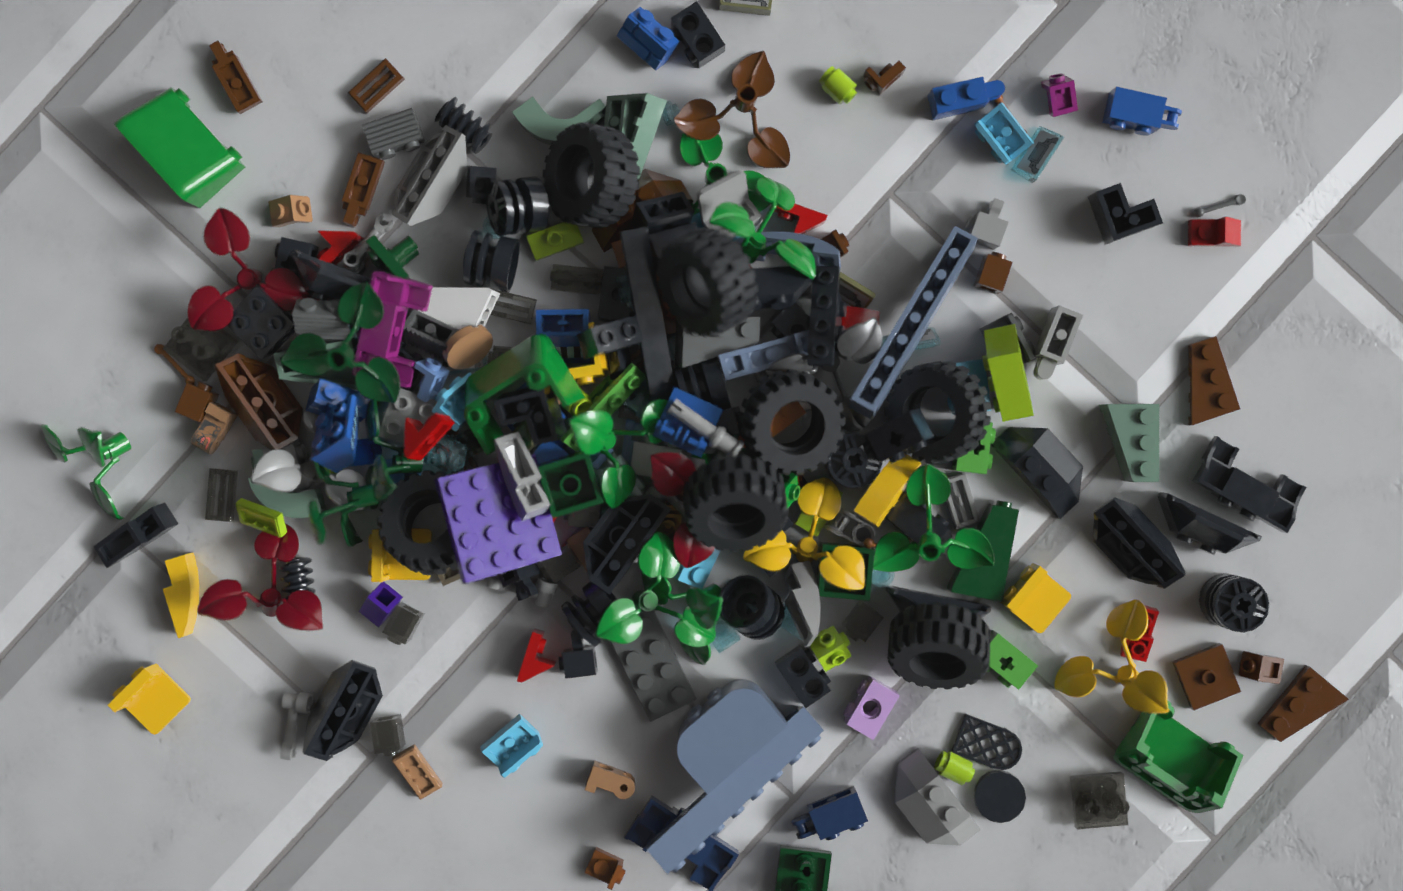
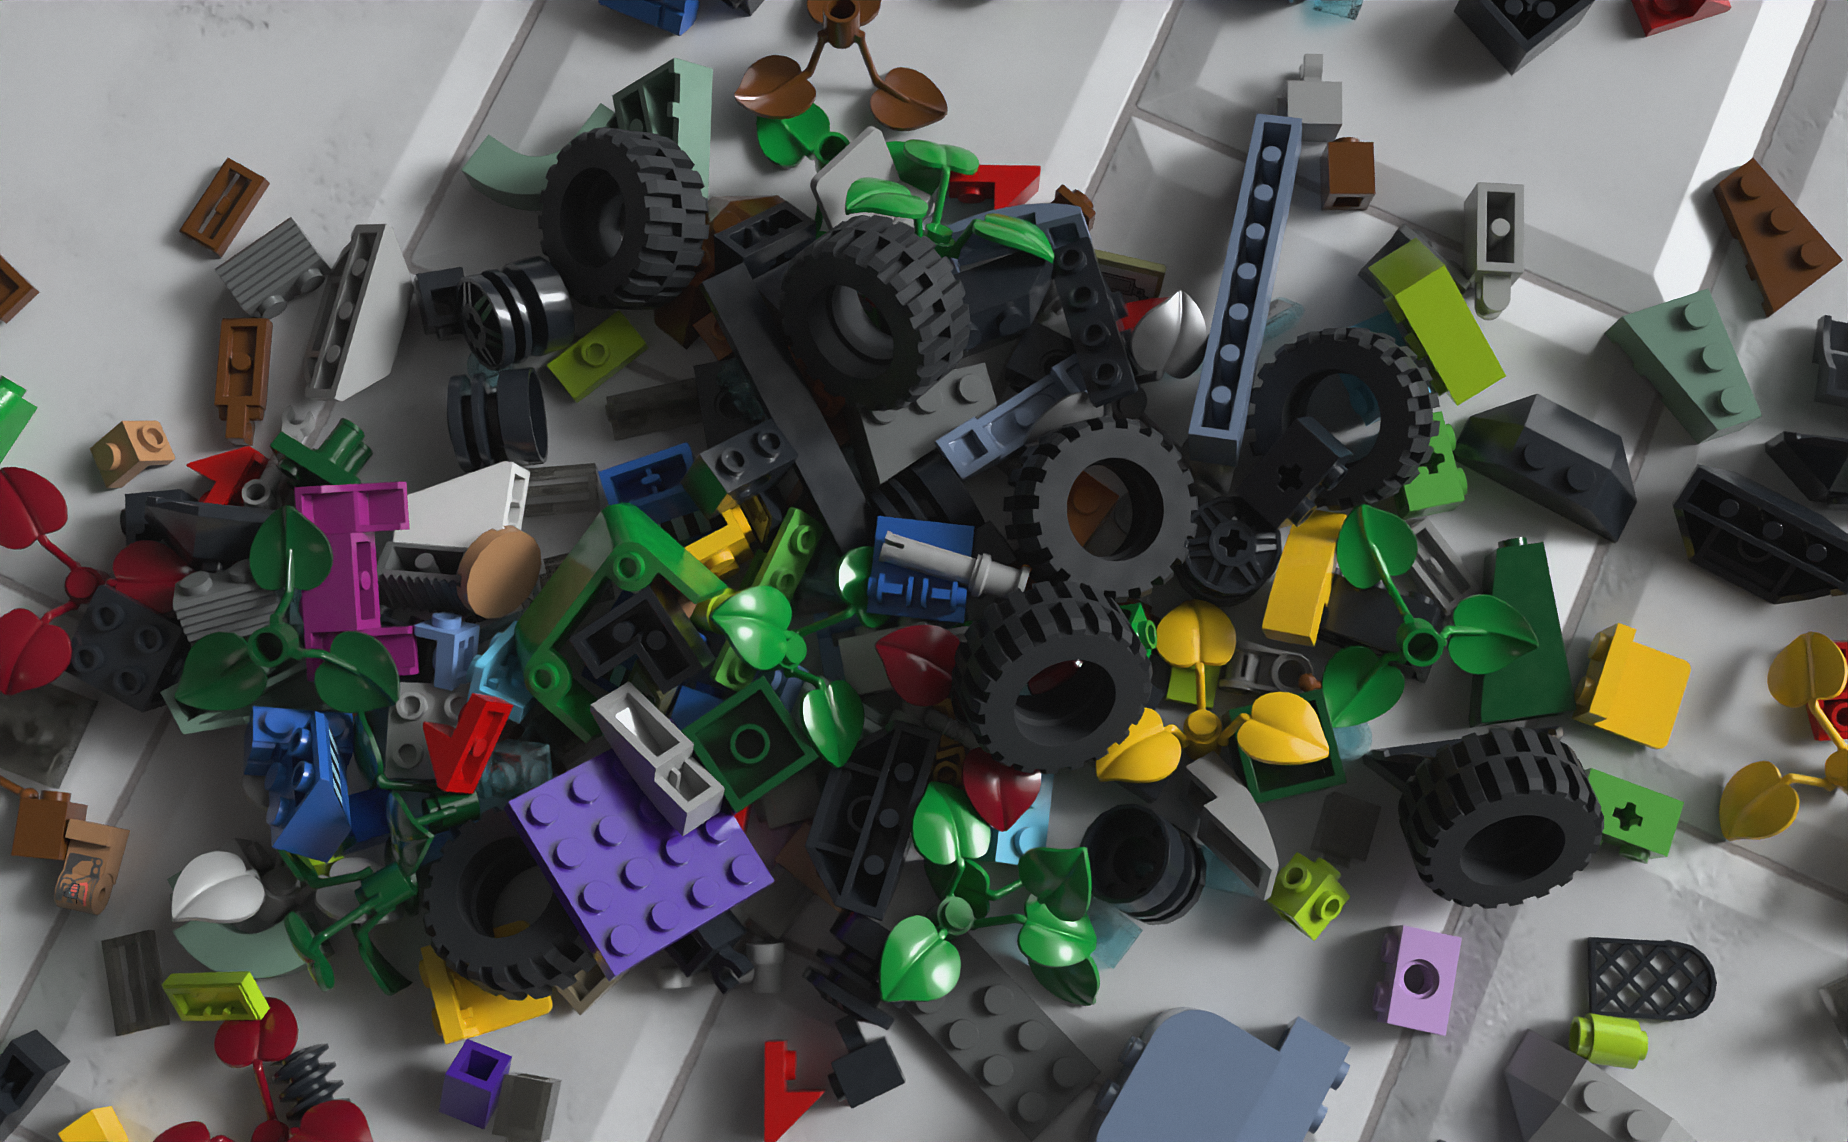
camera: 15 degrees left, 10 degrees down
(260, 400) = (159, 786): reddish brown wedge -> none
(456, 119) = (414, 229): black piece -> none
(669, 112) = (723, 95): clear light blue plate -> none
(798, 678) = (1270, 972): black brick -> none
(999, 796) = (1708, 1068): black tile -> none

